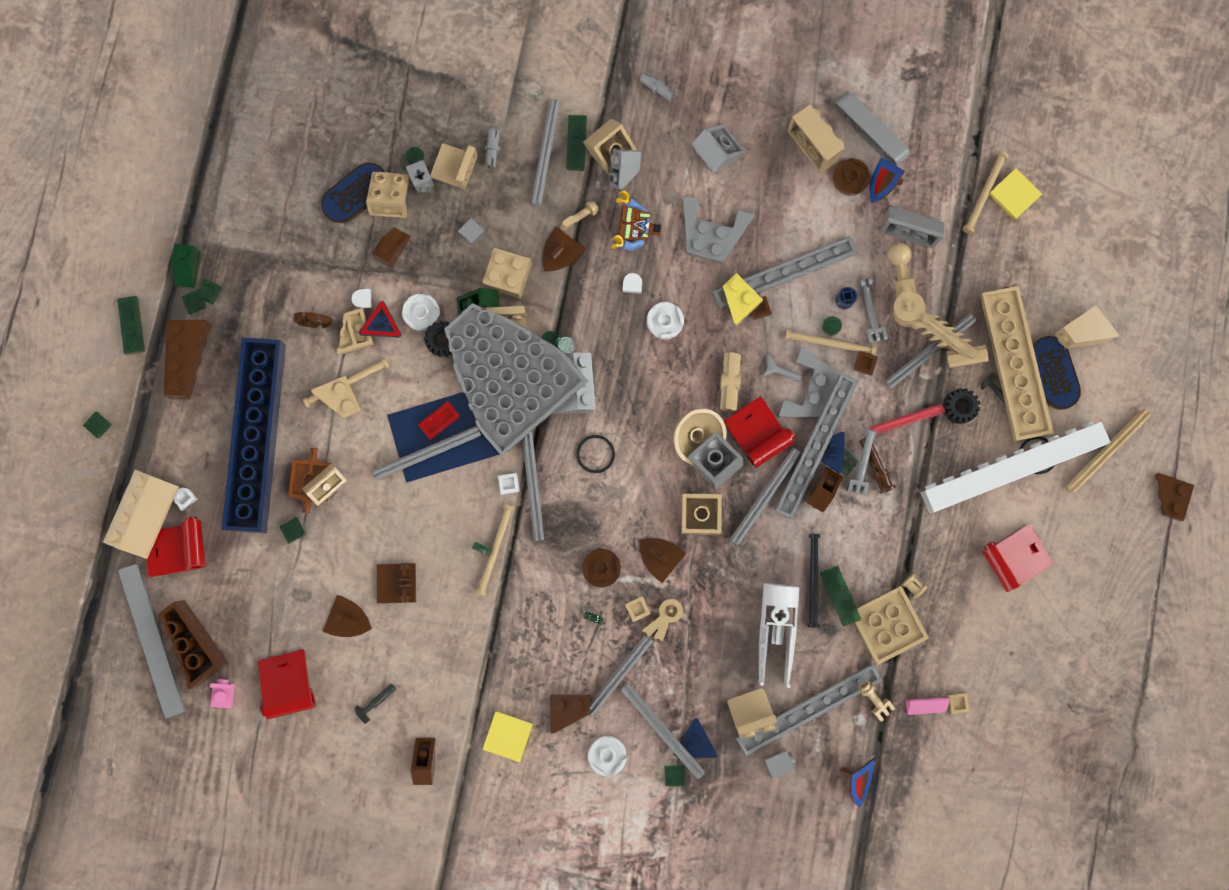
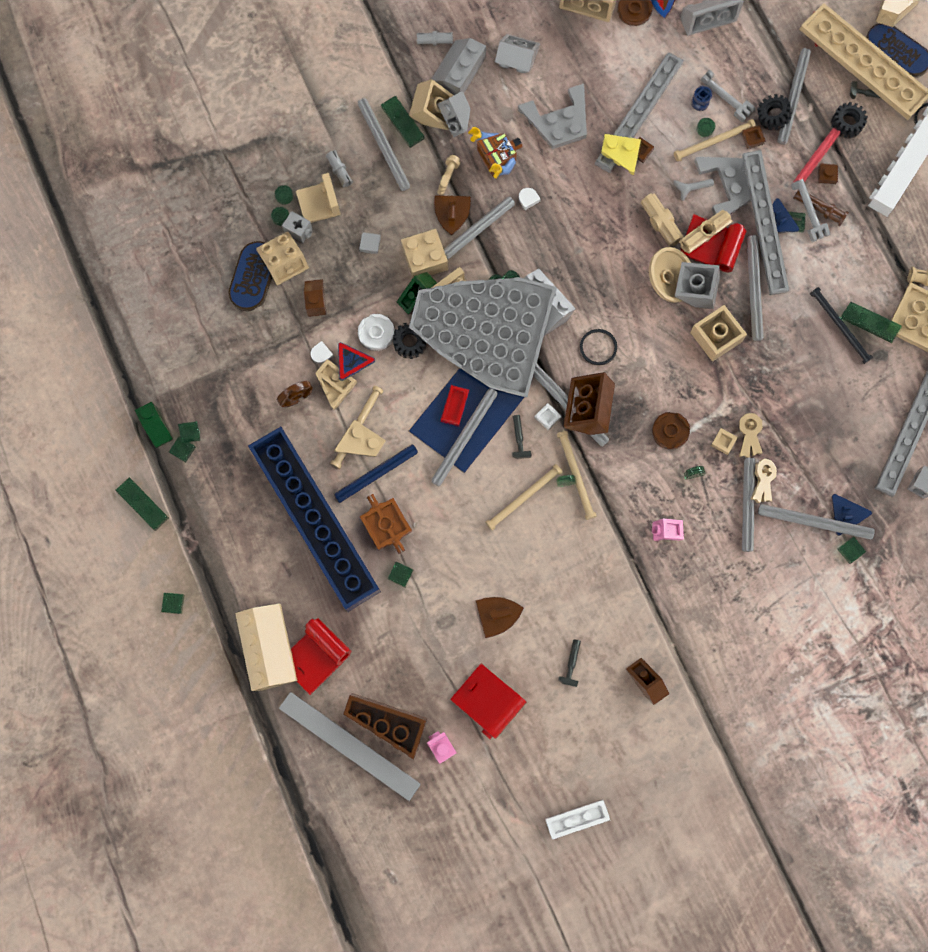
camera: 30 degrees left, 5 degrees down
(183, 356) = (204, 492): reddish brown wedge -> none
(184, 498) = (291, 611): white tile -> none
(285, 830) = (577, 819): none -> white plate
(324, 484) = (401, 517): tan slope -> none
(333, 432) = (376, 473): none -> dark blue axle
(396, 583) = (517, 556): reddish brown hinge -> none
(430, 139) = (284, 194): none -> clear green tile
(438, 537) = (524, 496): none -> tan bar
(471, 486) = (519, 439): none -> pearl dark grey piece
(507, 736) = (698, 613): light yellow tile -> none
(534, 650) = (667, 529): none -> bright pink bracket
(547, 499) = (590, 404): none -> reddish brown slope
(567, 709) = (730, 558): reddish brown wing -> none
(571, 280) = (478, 227): none -> light grey axle
(607, 755) = (787, 572): white tile -> none
(652, 659) = (765, 472): none -> piece
(659, 127) = (460, 65): none -> light grey slope
(660, 557) = (709, 390): reddish brown shield -> none
(665, 320) = (575, 209): white tile -> none
(752, 713) = (875, 458): tan bracket -> none
(769, 418) = (698, 236): none -> tan piece
(780, 597) = (833, 353): white piece -> none
(825, 490) = (797, 251): reddish brown slope -> none
(899, 344) = (774, 103): none -> black tyre
(906, 440) = (828, 173): none -> reddish brown plate
(911, 312) = (759, 72): tan piece -> none

